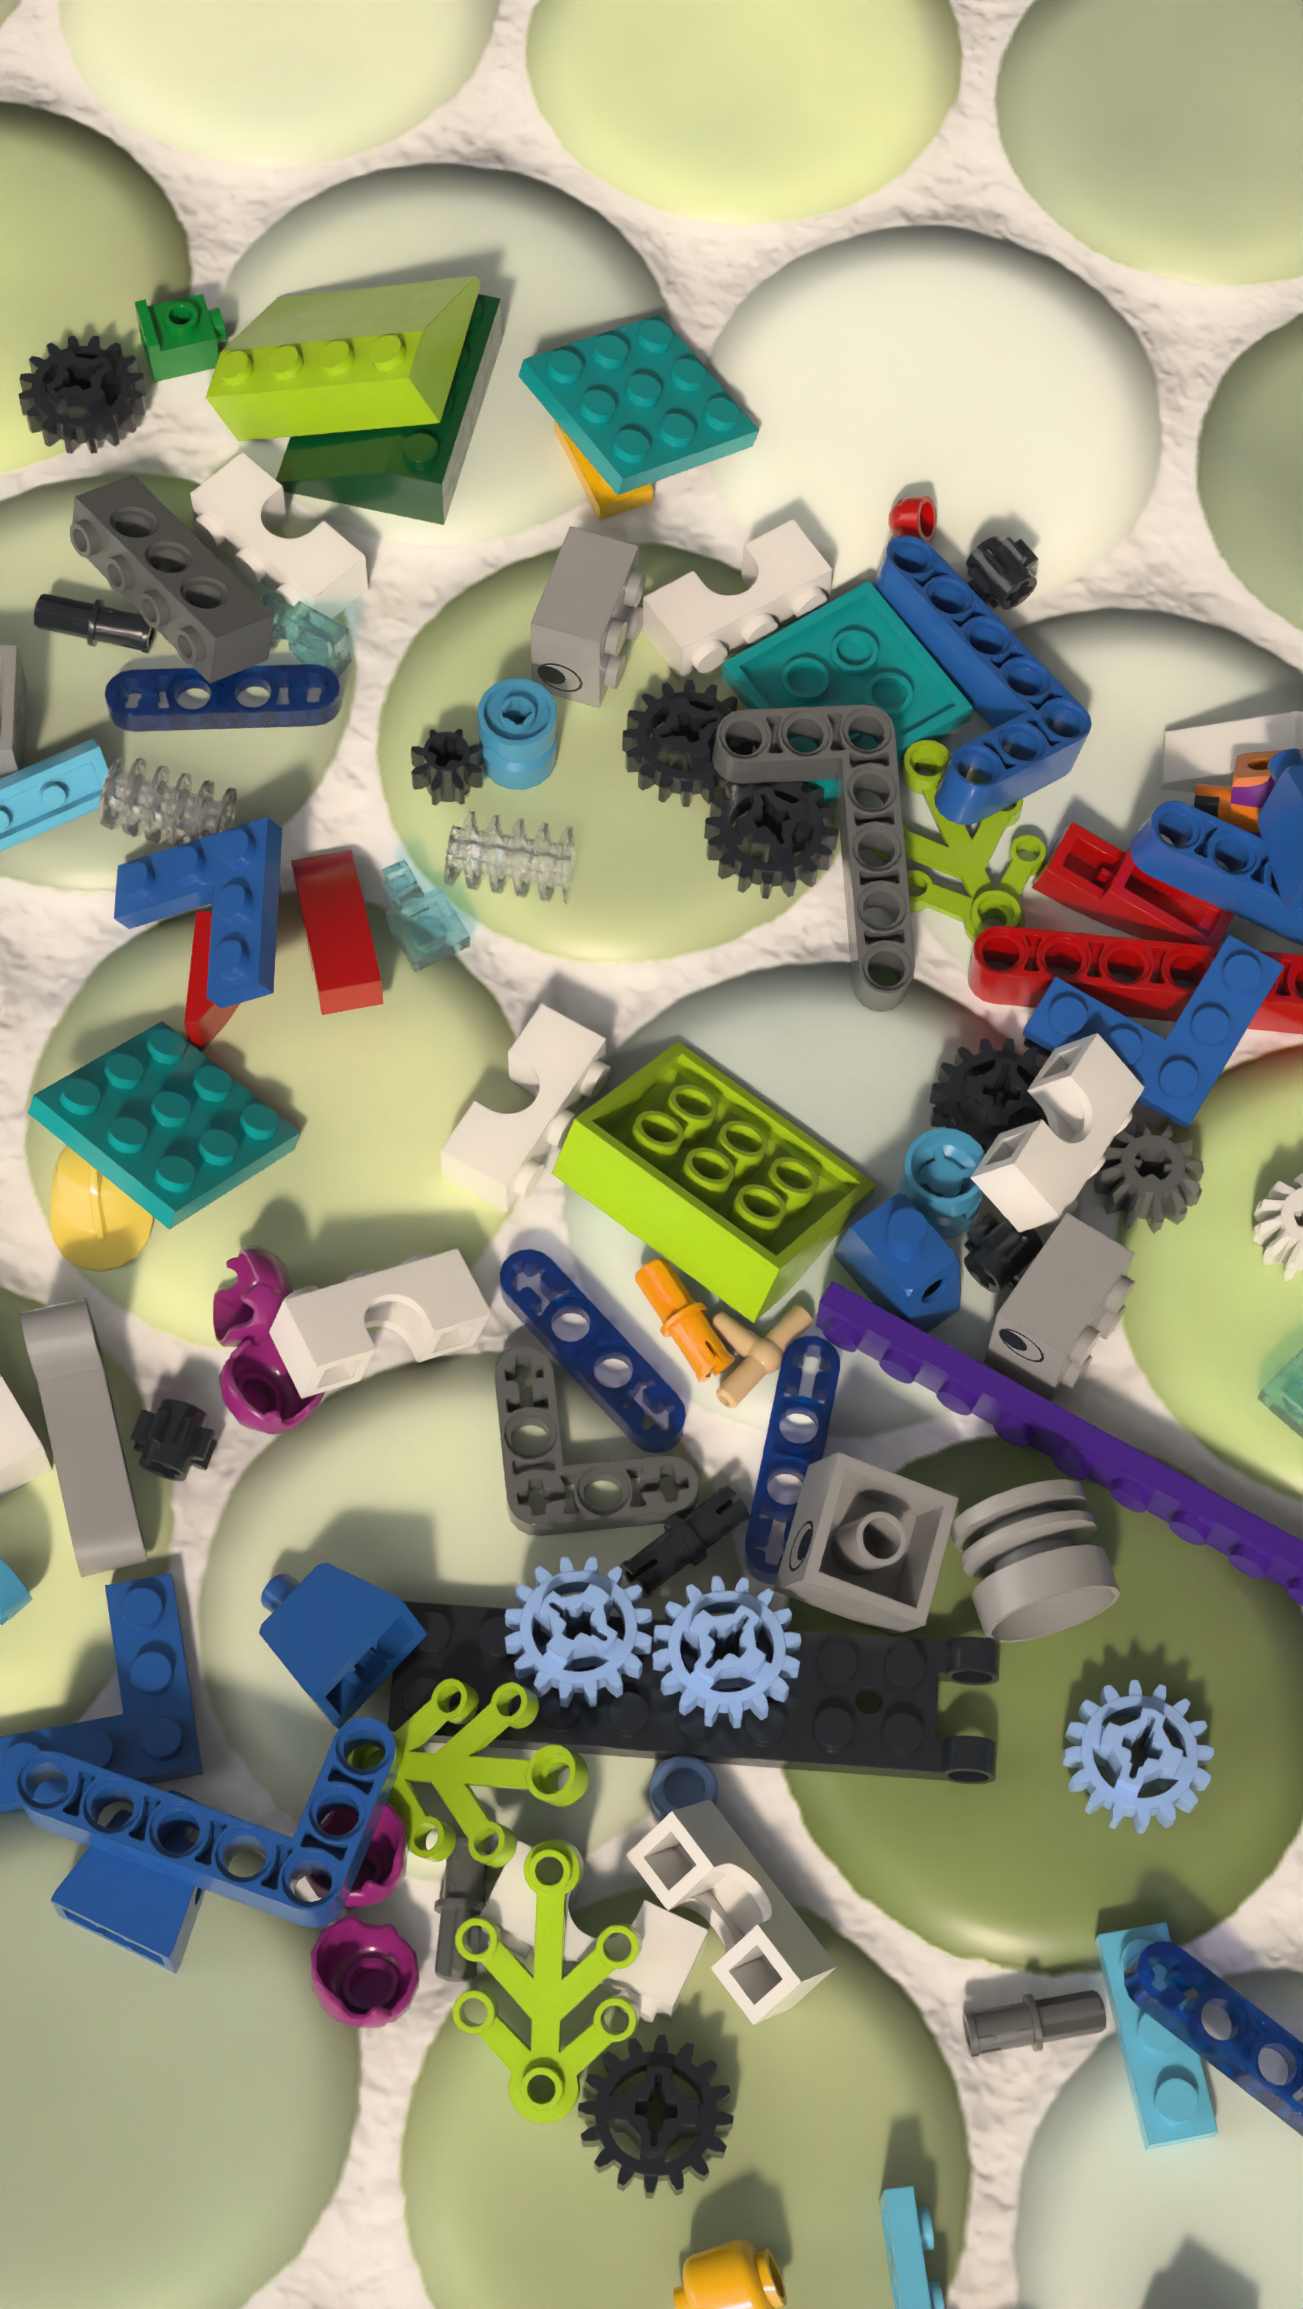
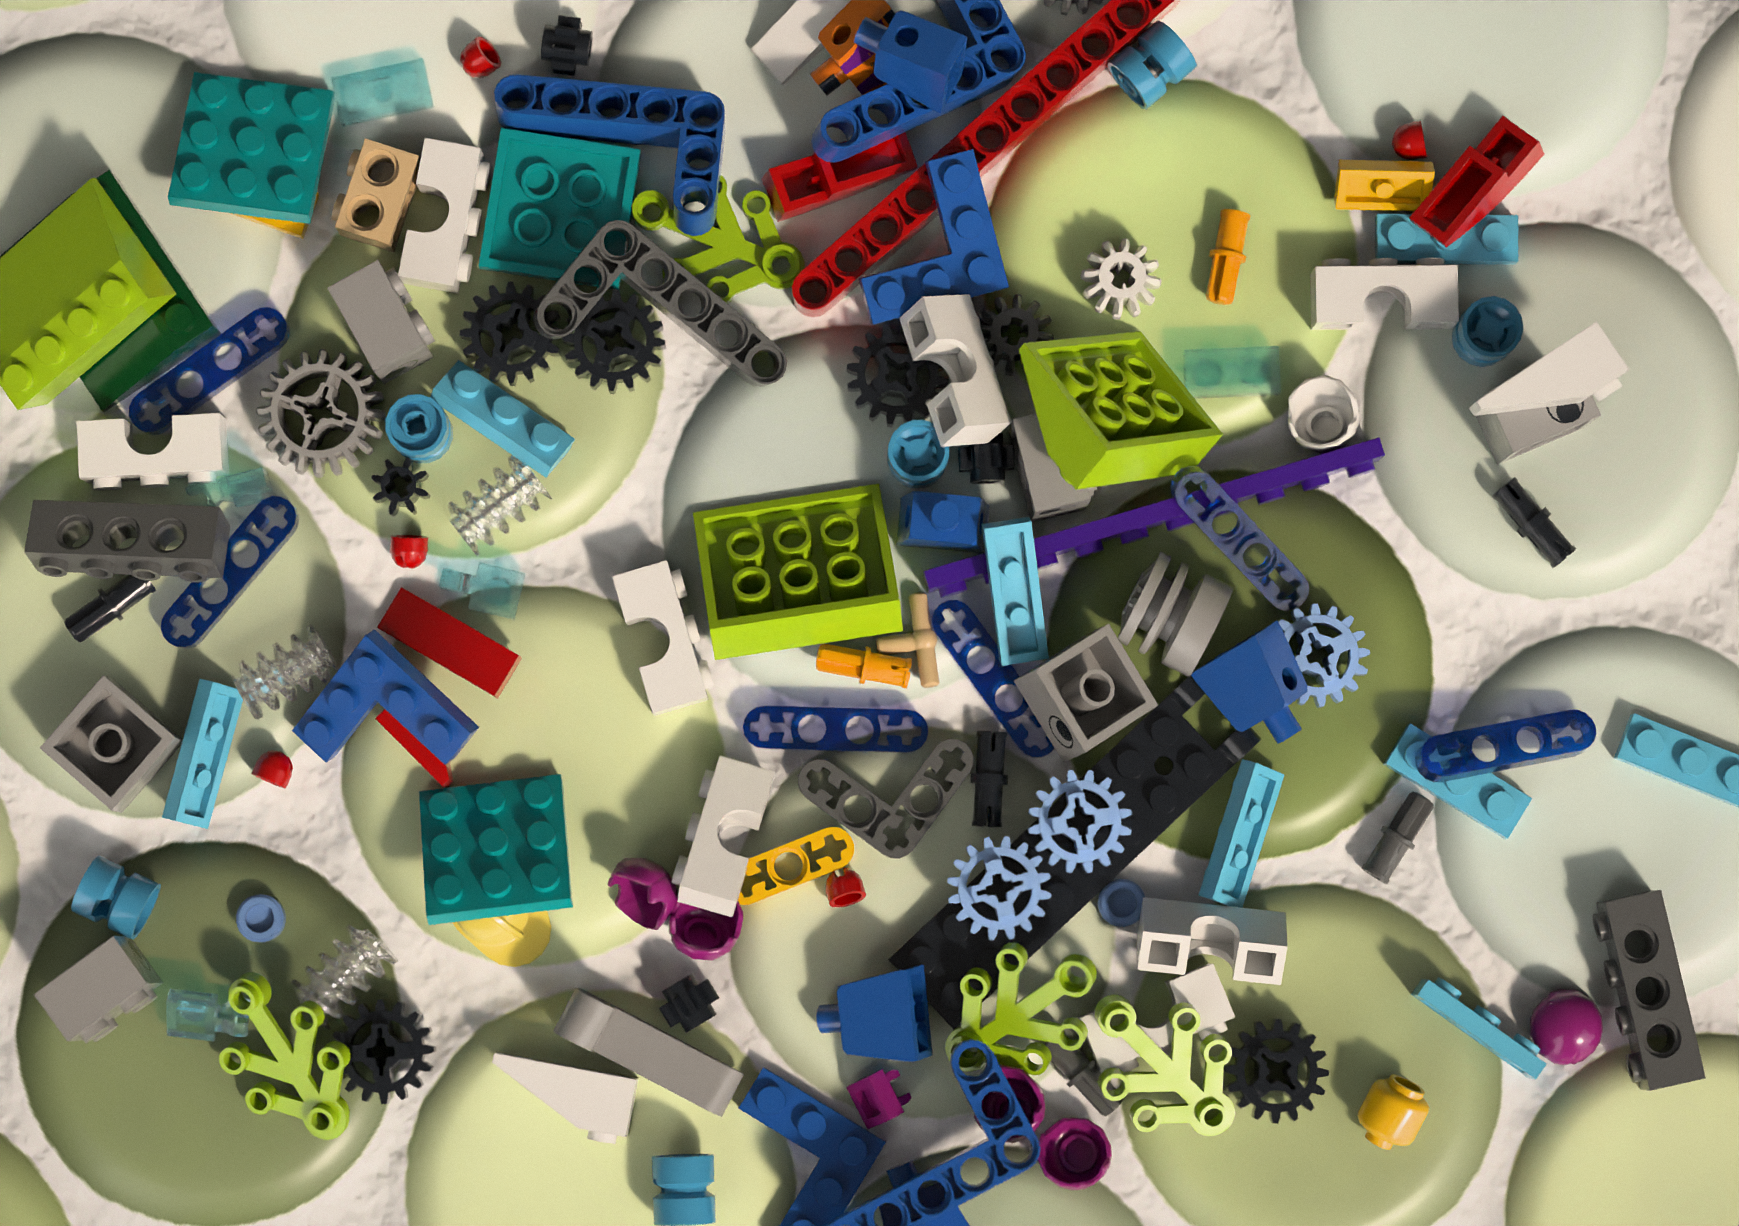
camera: 50 degrees left, 20 degrees up
(65, 878) = (274, 768): none -> red hinge
(238, 1714) = (876, 1098): none -> magenta tile
(393, 824) = (408, 550): none -> red hinge
(401, 527) = (205, 364): none -> clear blue beam
(435, 1496) = (845, 889): none -> red hinge
(458, 1429) = (826, 863): none -> yellow beam
(471, 626) = (314, 435): none -> light grey gear
(599, 801) = (502, 418): none -> medium azure plate
(695, 521) = (390, 197): none -> tan brick
(799, 473) = (382, 92): none -> clear light blue plate
(875, 1846) = (1241, 834): none -> medium azure plate
(901, 1377) = (1015, 591): none -> medium azure plate
(1048, 1705) = (1256, 683): none -> blue torso
(1173, 1308) = (1114, 410): none -> lime slope
(1184, 1560) = (1243, 535): none -> clear blue beam

